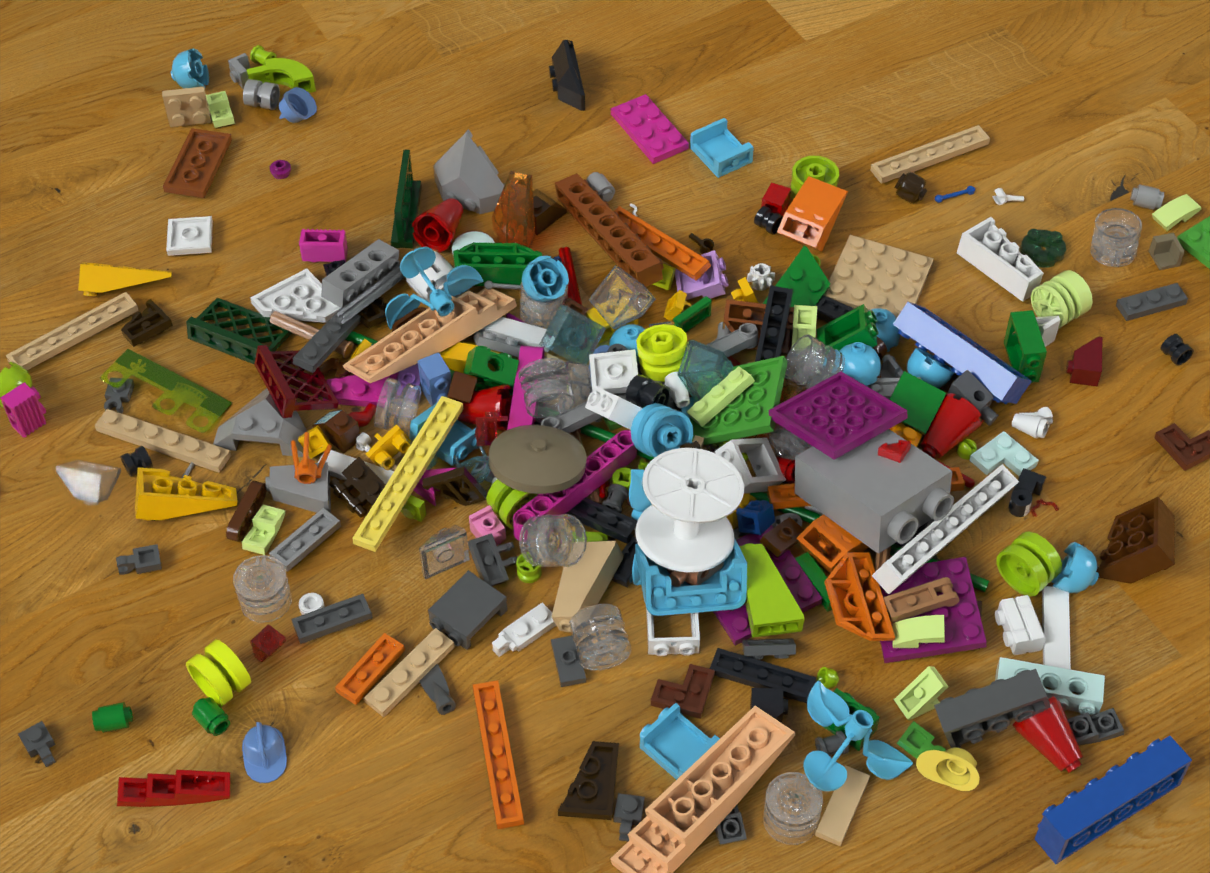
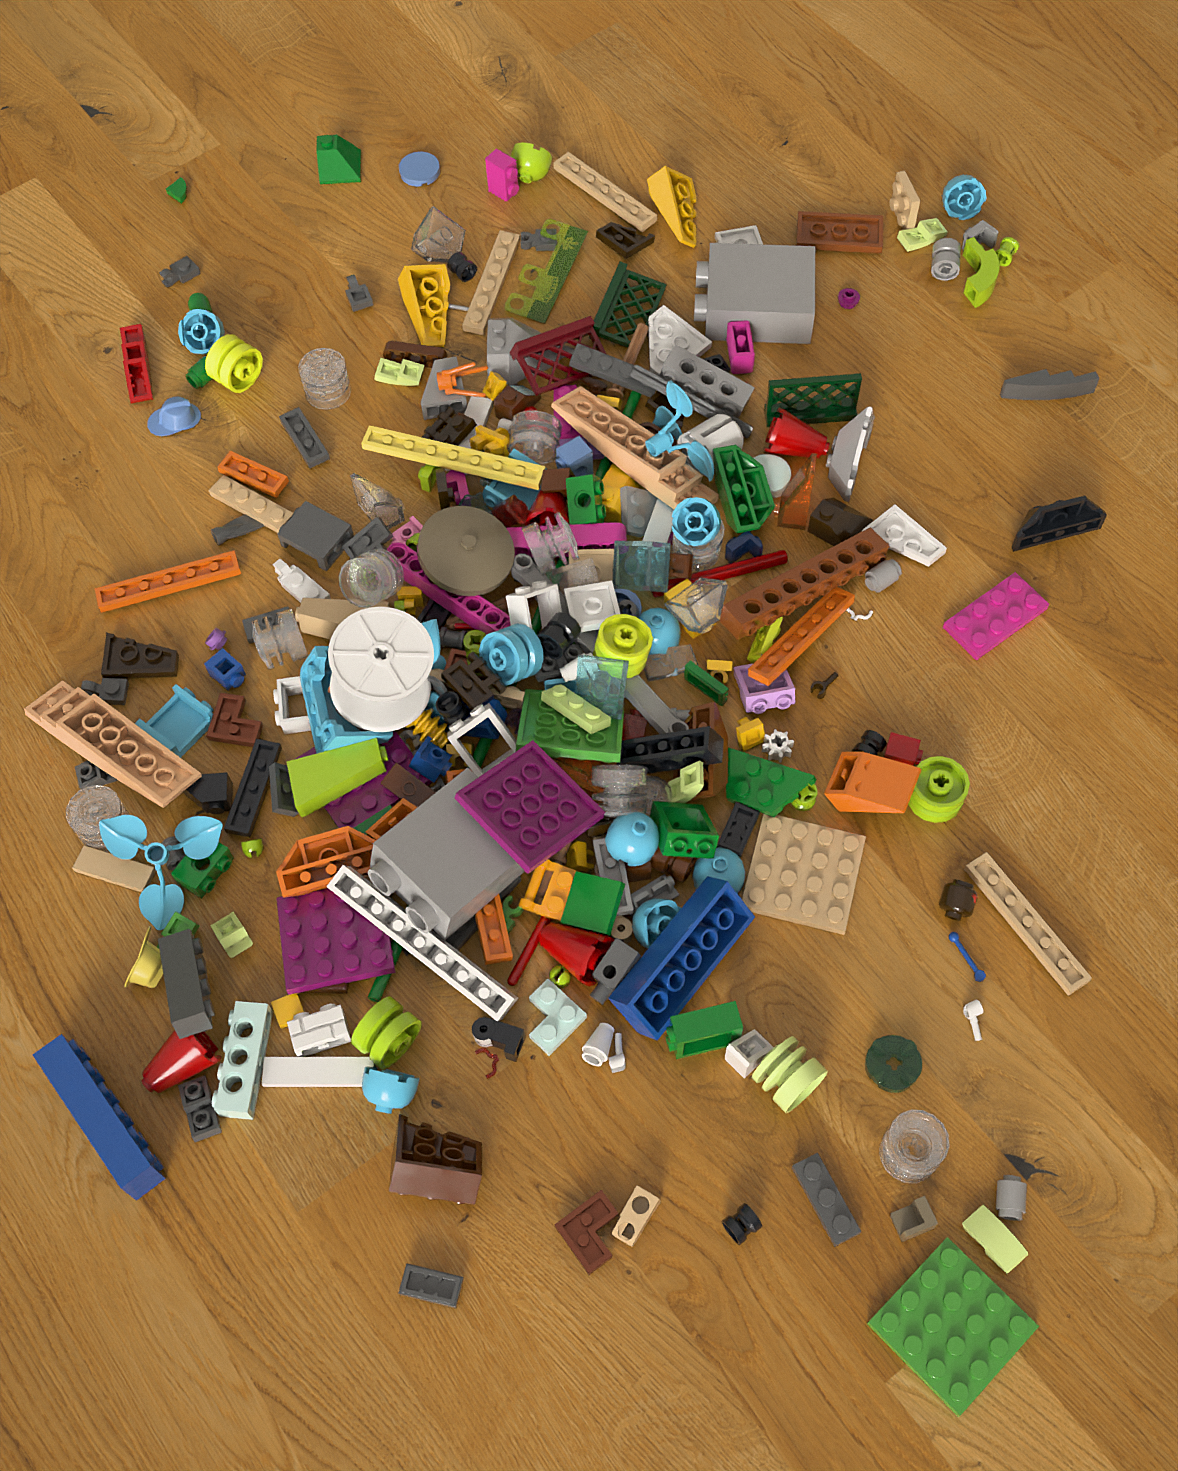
camera: 85 degrees right, 10 degrees up
(158, 706) = (200, 330): none -> medium azure cylinder
(262, 221) = (758, 285): none -> light grey brick
(267, 642) = (270, 393): clear red bracket -> none
(297, 105) = (939, 291): medium blue piece -> none
(306, 539) = (388, 403): light grey plate -> none
(310, 602) = (321, 422): white tile -> none
(424, 56) = (1042, 386): none -> dark grey slope
(488, 285) = (715, 492): light grey hinge -> none
(560, 167) = (907, 536): none -> white wing
(576, 708) = (216, 639): none -> medium lavender plate
(623, 687) = (225, 669): none -> blue brick
(720, 149) = (978, 689): medium azure panel -> none
(895, 451) = (477, 861): red tile -> none
(919, 630) = (291, 921): yellowish green slope -> none
(920, 599) = (330, 920): medium nougat plate -> none
(995, 650) = (286, 1008): none -> yellow tile
(999, 259) = (859, 998): white wedge -> none
(1086, 363) = (703, 1110): dark red slope -> none
(1174, 410) = (635, 1216): none -> tan leg

